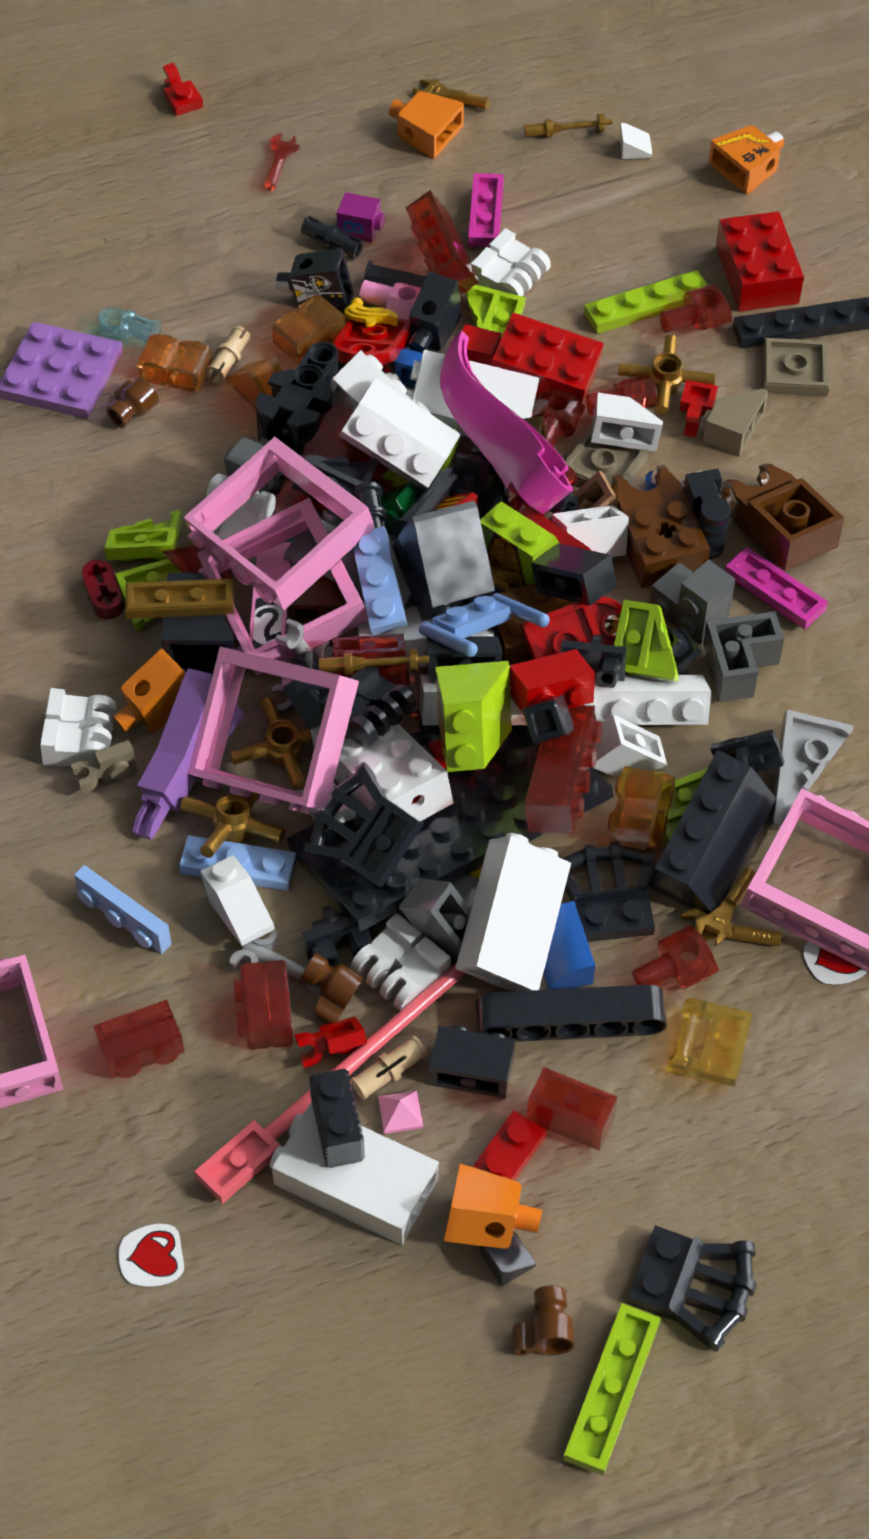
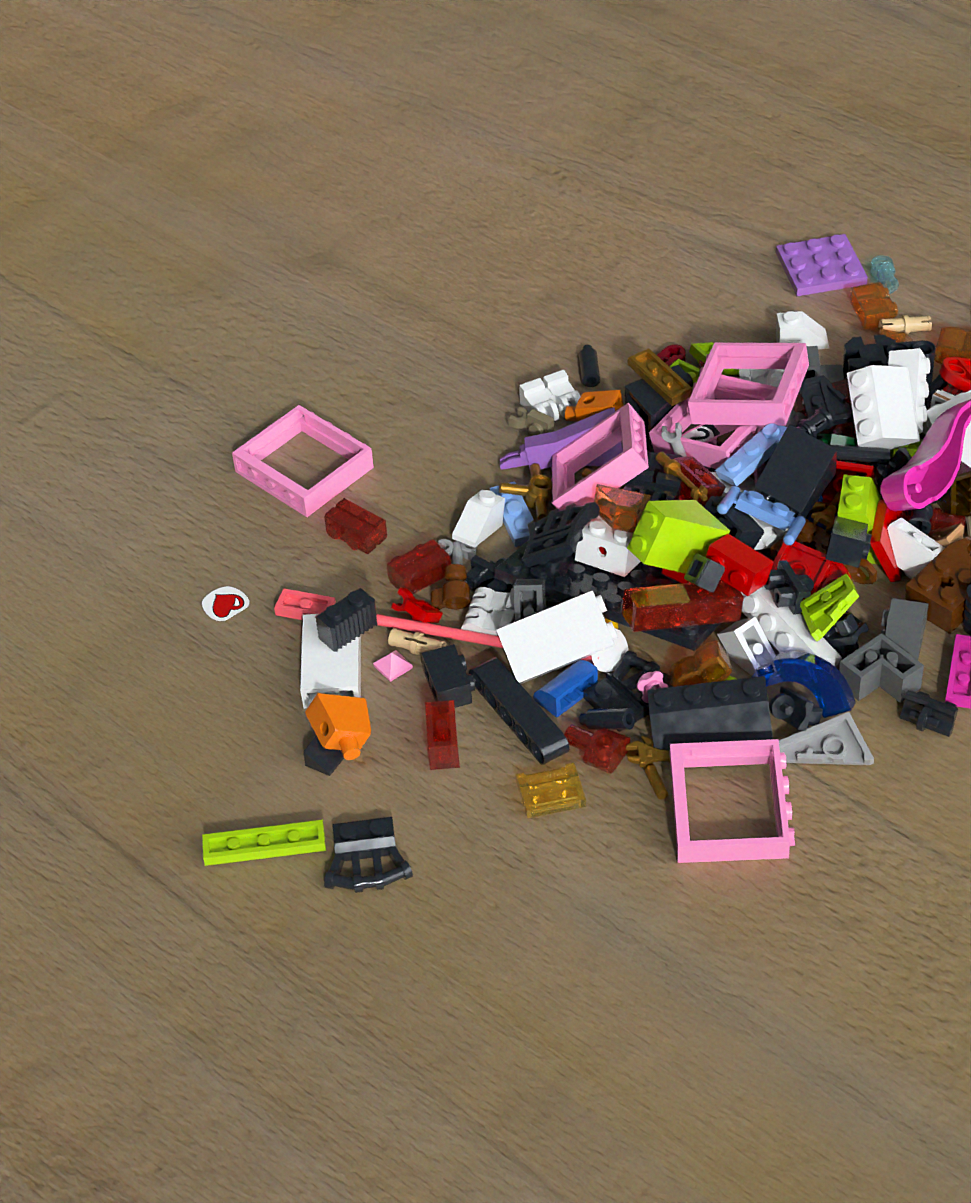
camera: 65 degrees right, 10 degrees down
(46, 663) = (589, 366): none -> black cylinder
(122, 910) = (437, 478): light blue plate -> none
(132, 399) = (825, 303): reddish brown piece -> none
(162, 449) = (800, 328): none -> white slope
(388, 742) = (620, 507): none -> clear orange slope
(511, 1147) = (398, 727): red plate -> none
(550, 1330) = (286, 795): reddish brown piece -> none
(633, 864) = (649, 680): none -> bright pink plate
(647, 932) = (608, 718): none -> black cylinder
(713, 716) = (814, 673): none -> clear blue arch
(818, 647) = (929, 713): none -> black hips
(830, 967) = (663, 833): sticker -> none

